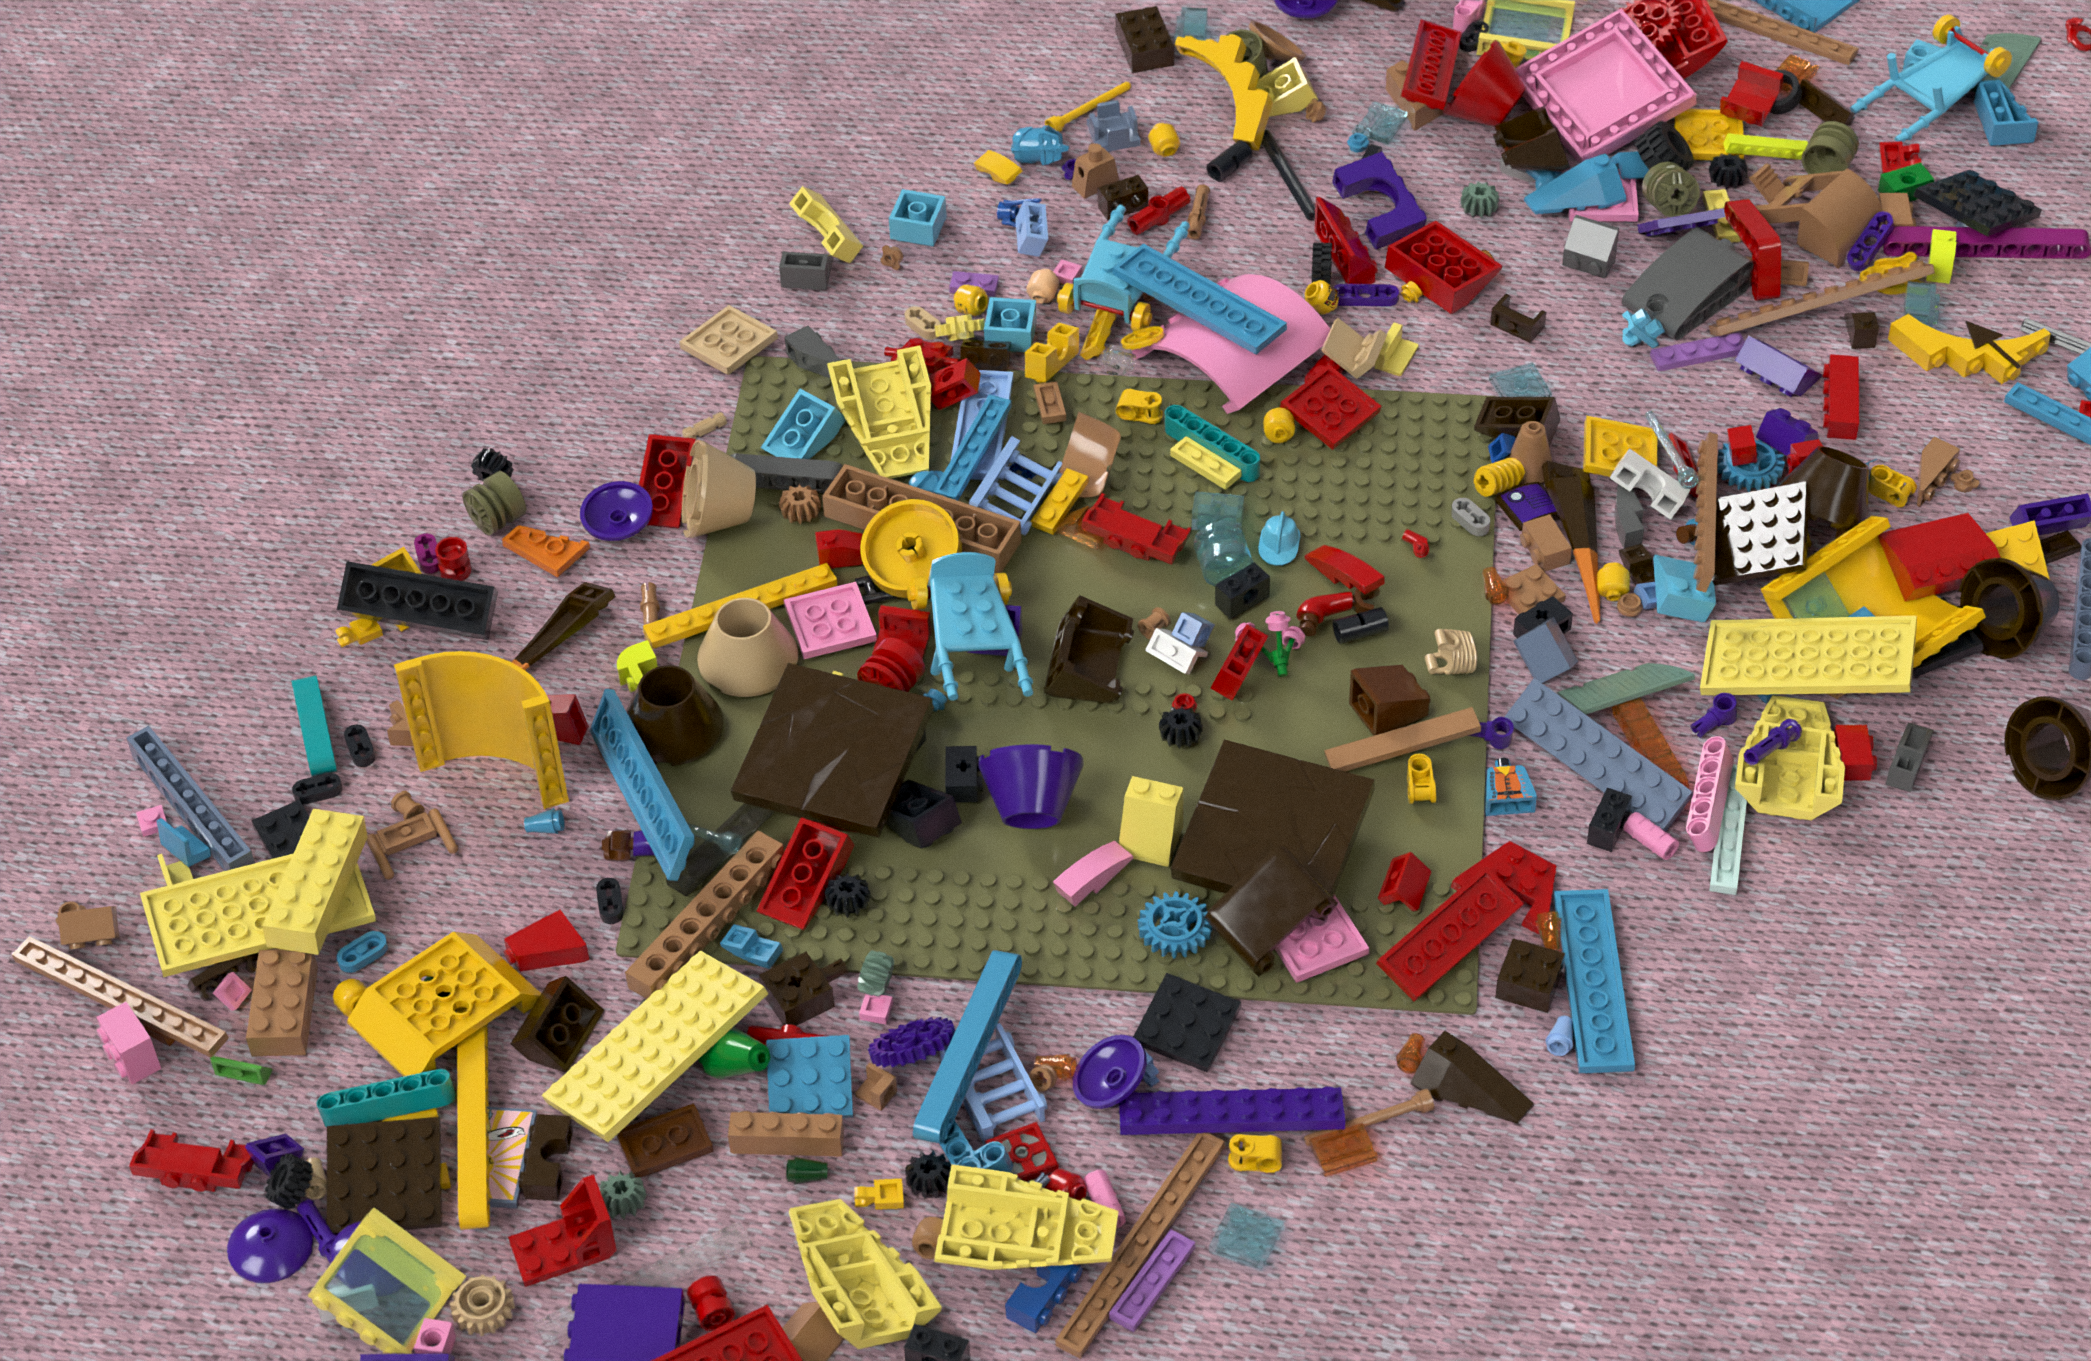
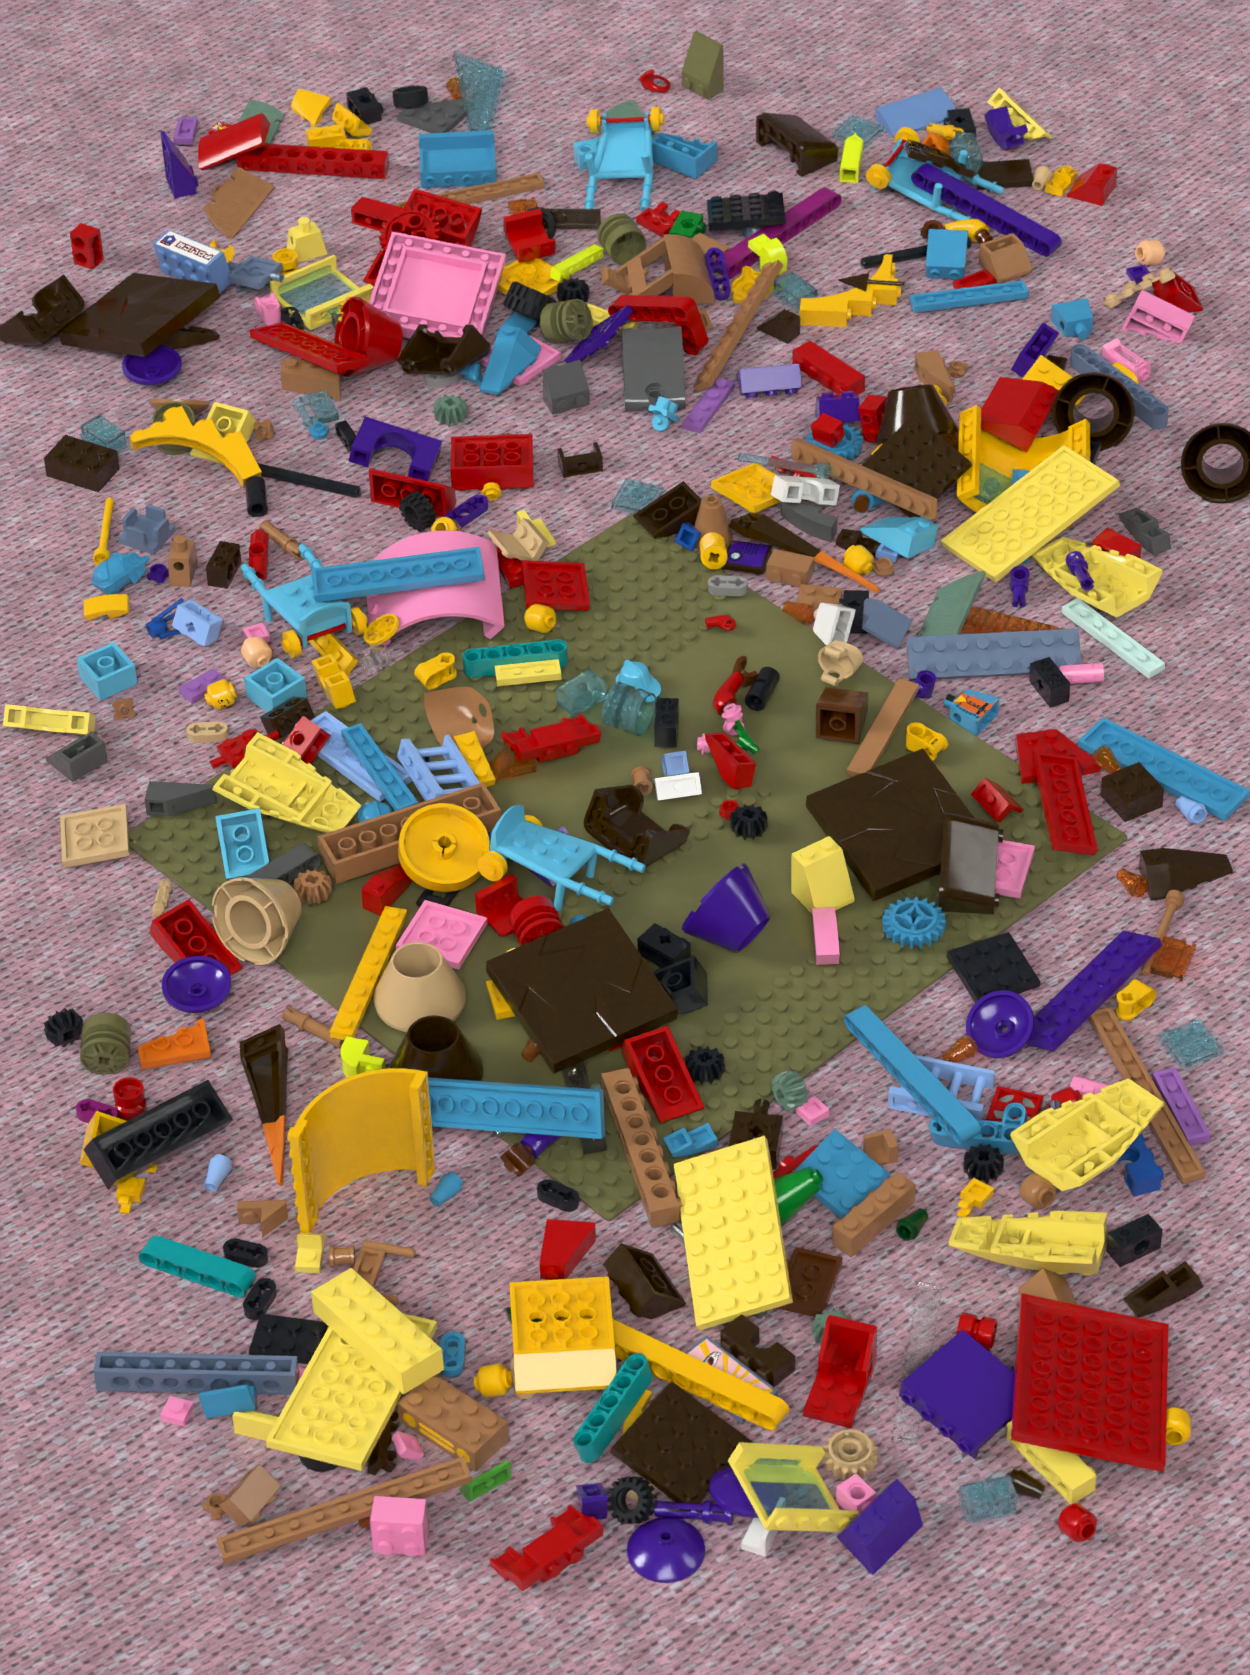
camera: 50 degrees left, 5 degrees down
(403, 778) = (309, 1252): none -> light yellow slope
(911, 1042) = (870, 1102): dark purple gear -> none
(959, 327) = (246, 712): light yellow gear -> none
(1048, 1073) = (957, 1058): medium nougat bush -> none
(1049, 402) = (375, 712): medium nougat plate -> none
(1164, 139) = (193, 513): yellow head -> none
(1345, 568) = (701, 665): red slope -> none
(1503, 613) = (833, 622): none -> white torso
(1710, 794) = (1087, 632): bright pink beam -> none

